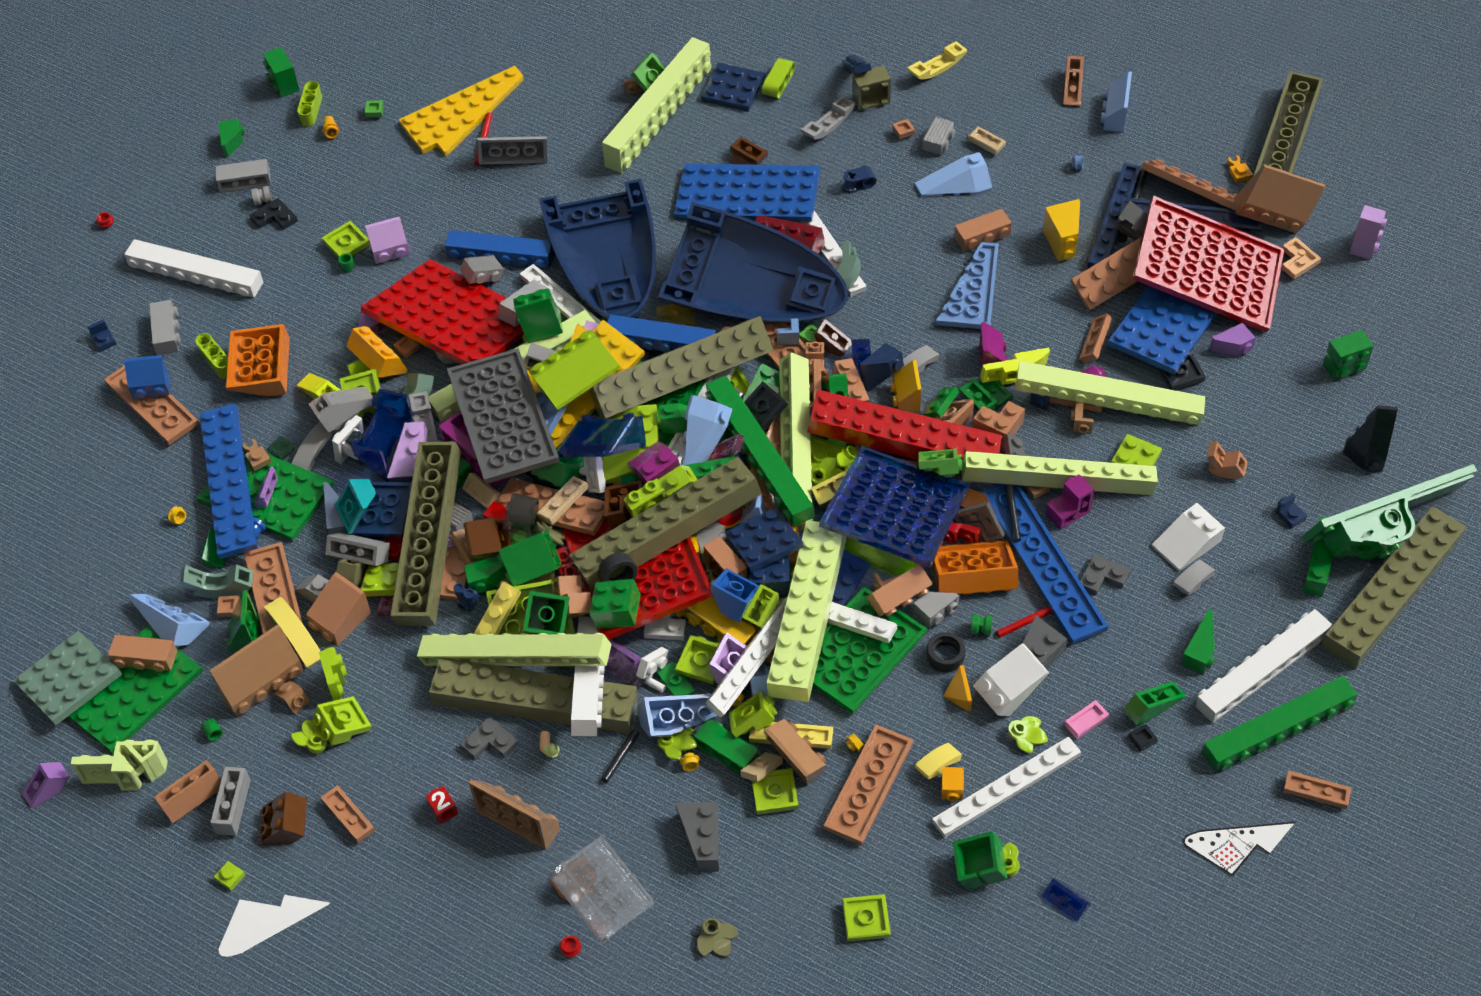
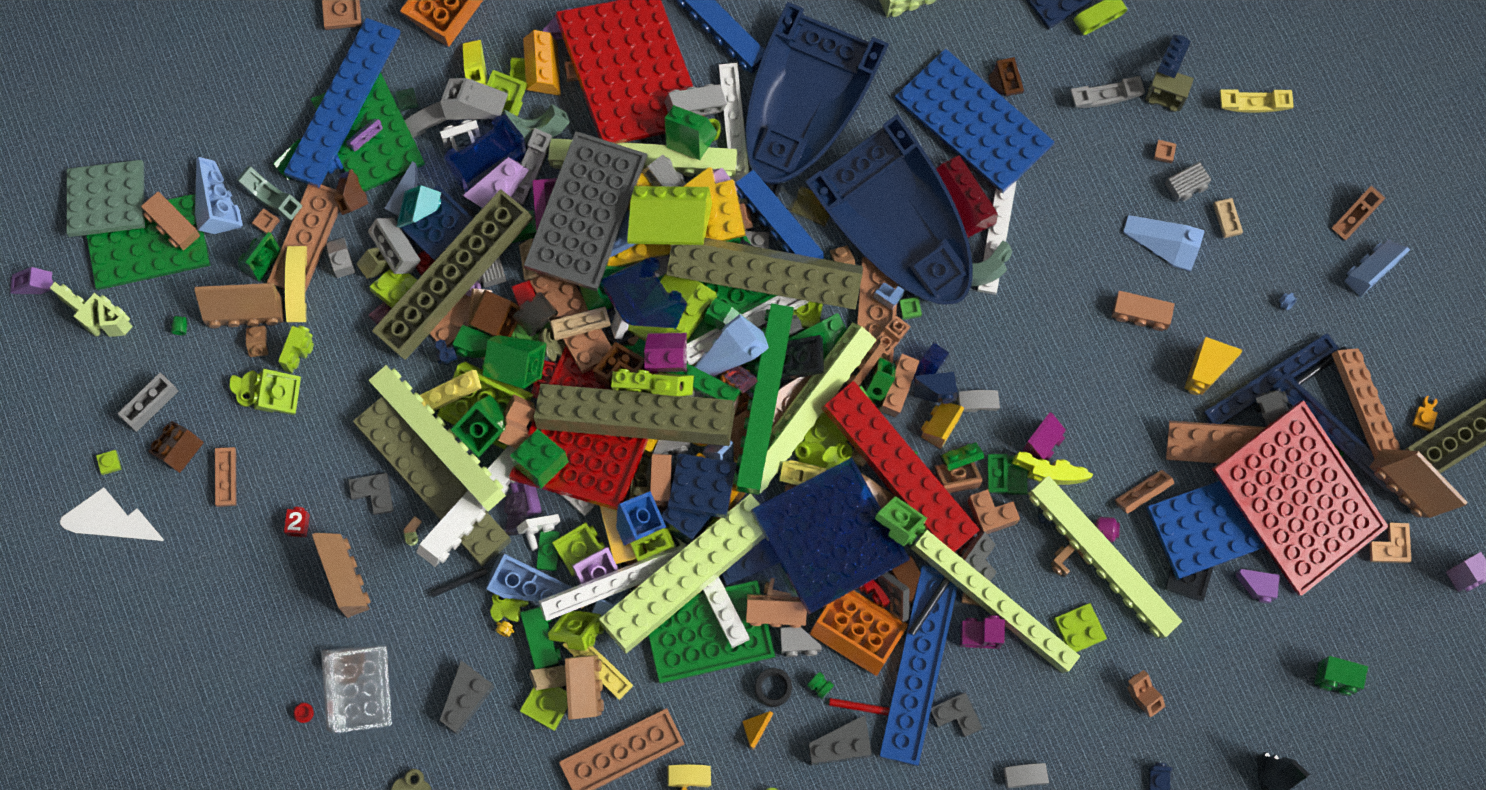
camera: 30 degrees right, 20 degrees up
(177, 515) = (284, 104): yellow plate -> none
(189, 791) = (124, 370): nougat brick -> none
(256, 456) = (381, 95): medium nougat plate -> none
(287, 536) = (349, 193): none -> reddish brown slope
(338, 609) = (340, 291): nougat slope -> none
(481, 269) = (689, 39): light grey brick -> none
(616, 560) = (563, 430): black tyre -> none
(833, 339) = (924, 325): reddish brown slope -> none
(854, 742) = (639, 709): yellow plate -> none
(860, 179) = (1083, 177): dark blue piece -> none
(973, 295) = (1077, 371): medium blue wing -> none
(1011, 680) = (795, 756): white slope -> none
(1189, 537) = (1053, 737): white slope -> none

